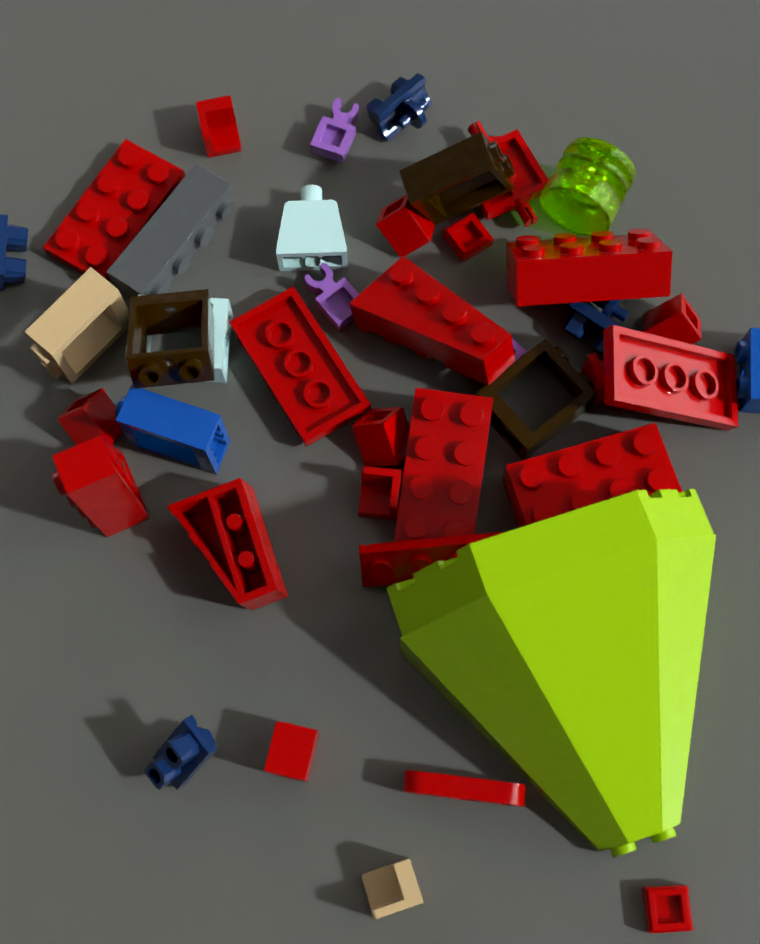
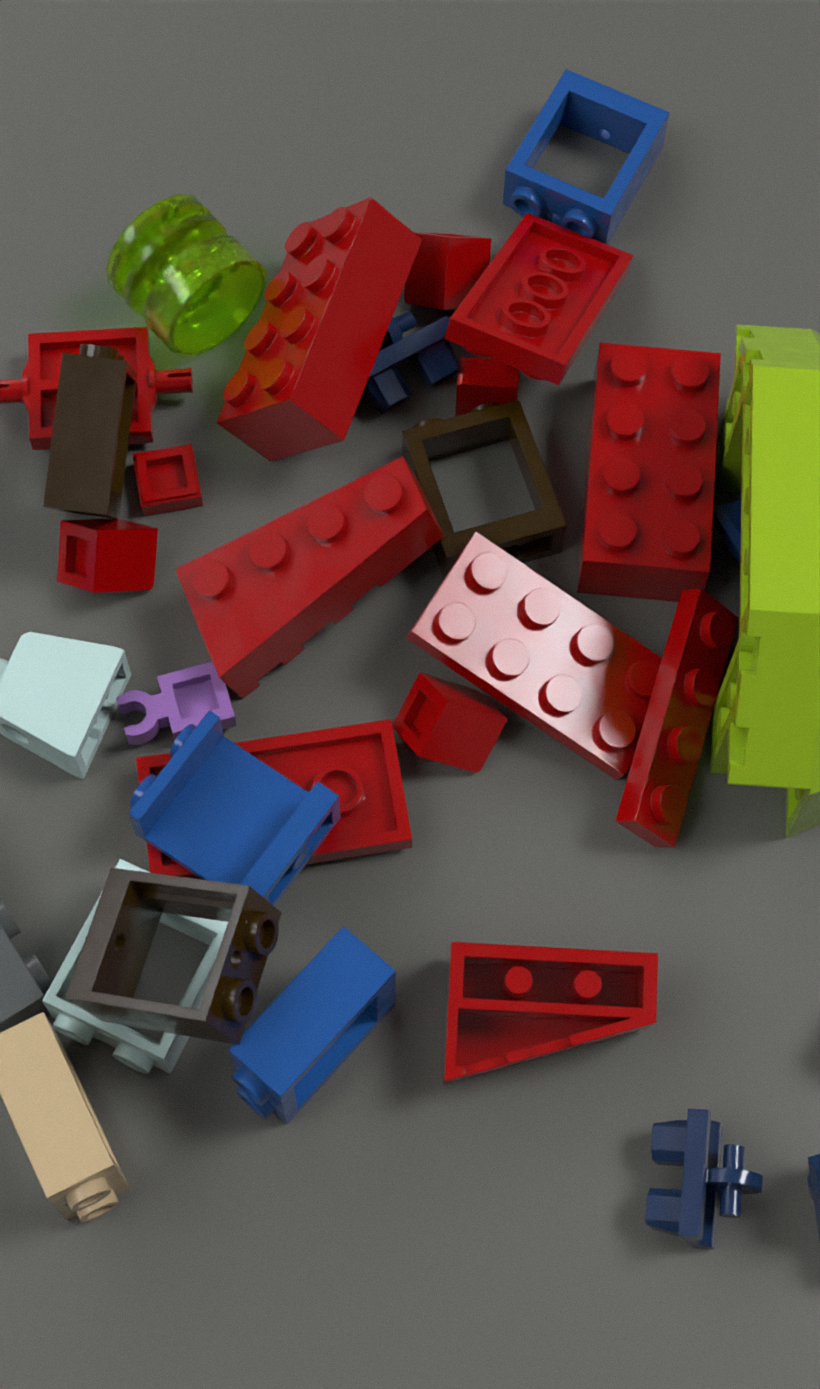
camera: 70 degrees left, 5 degrees down
(91, 417) = (225, 1167): red panel -> none
(99, 485) = (376, 1154): red wedge -> none
(173, 668) = (697, 1148): none -> dark blue hips
(276, 344) = (231, 813): none -> blue panel
(379, 493) = (541, 761): red panel -> none

